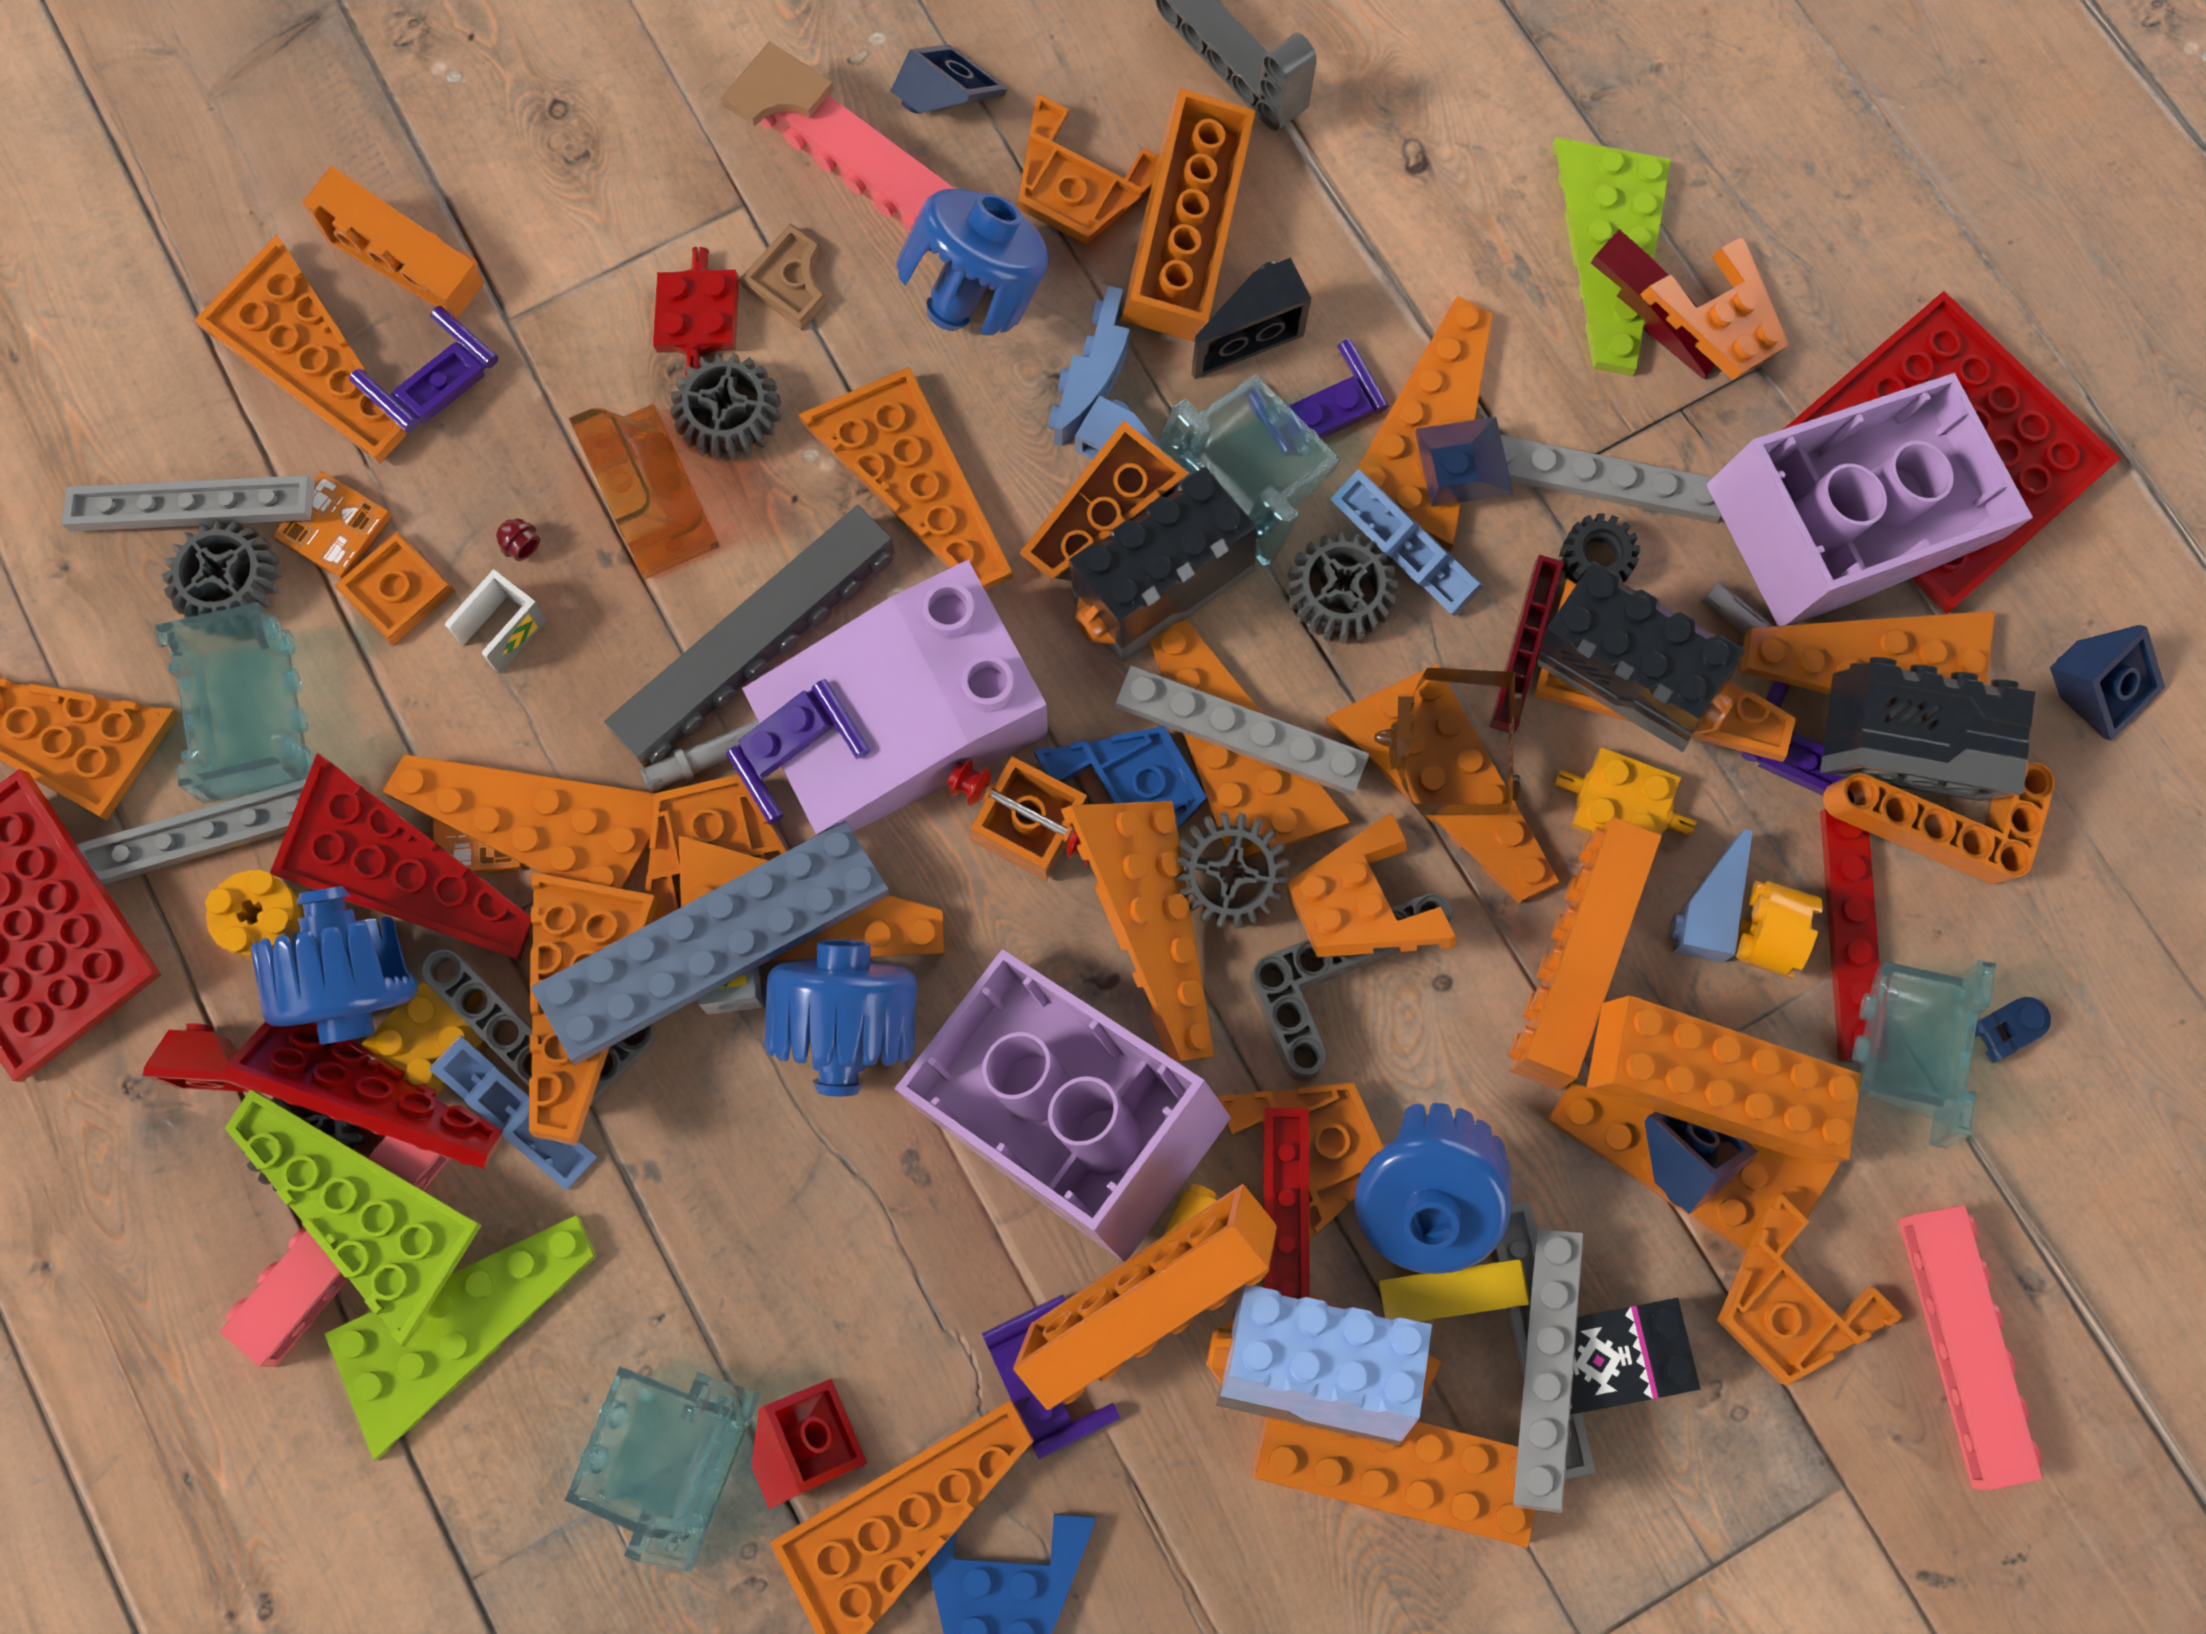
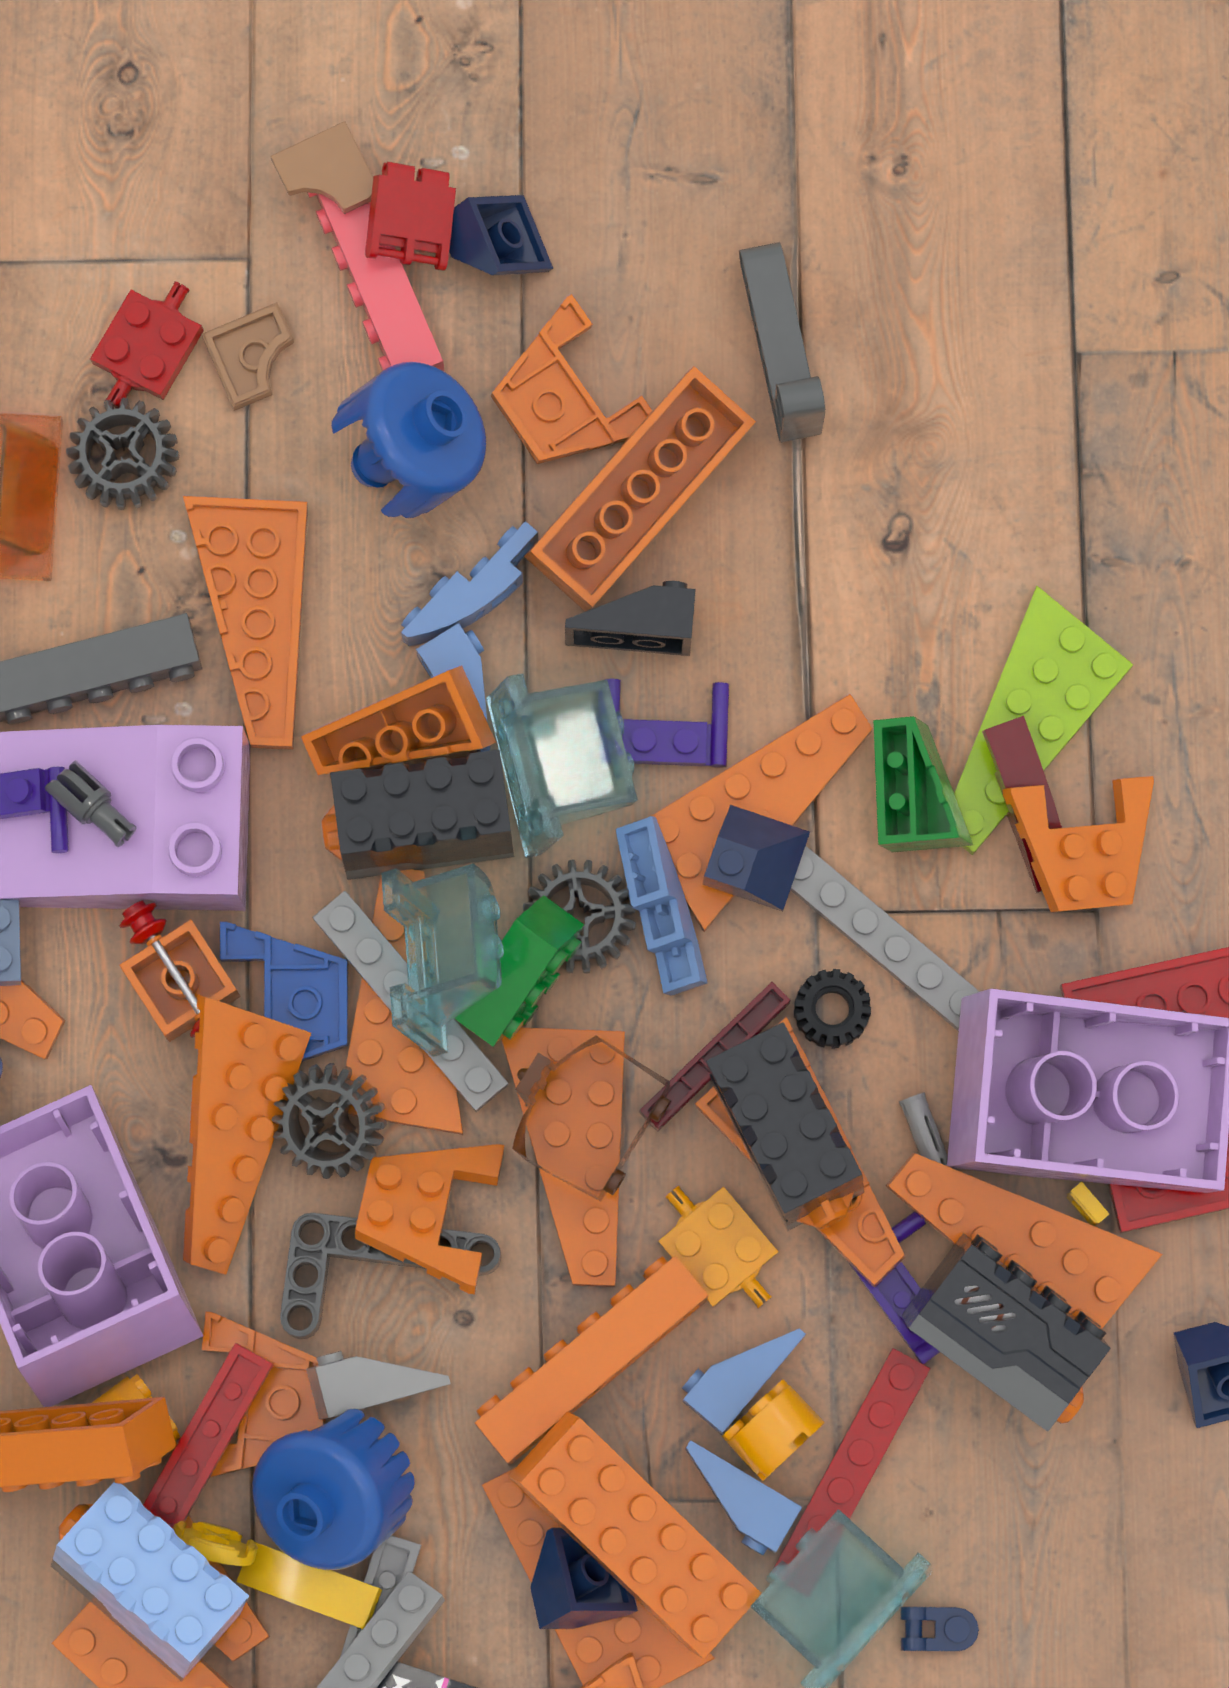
camera: 30 degrees right, 5 degrees up
(868, 693) = (89, 802): none -> dark grey arm
(869, 87) = (411, 215): none -> red plate
(1258, 653) = (449, 949): none -> clear light blue windscreen
(1329, 650) = (532, 956): none -> green brick
(1359, 1296) = (217, 1543): none -> yellow tile
(1396, 1082) = (364, 1382): none -> light grey slope
(1564, 340) = (913, 790): none -> green wedge
(1787, 1006) = (750, 1505): none -> medium blue slope
(1909, 601) = (1087, 1204): none -> yellow tile
(1949, 829) = (986, 1427): orange beam -> none

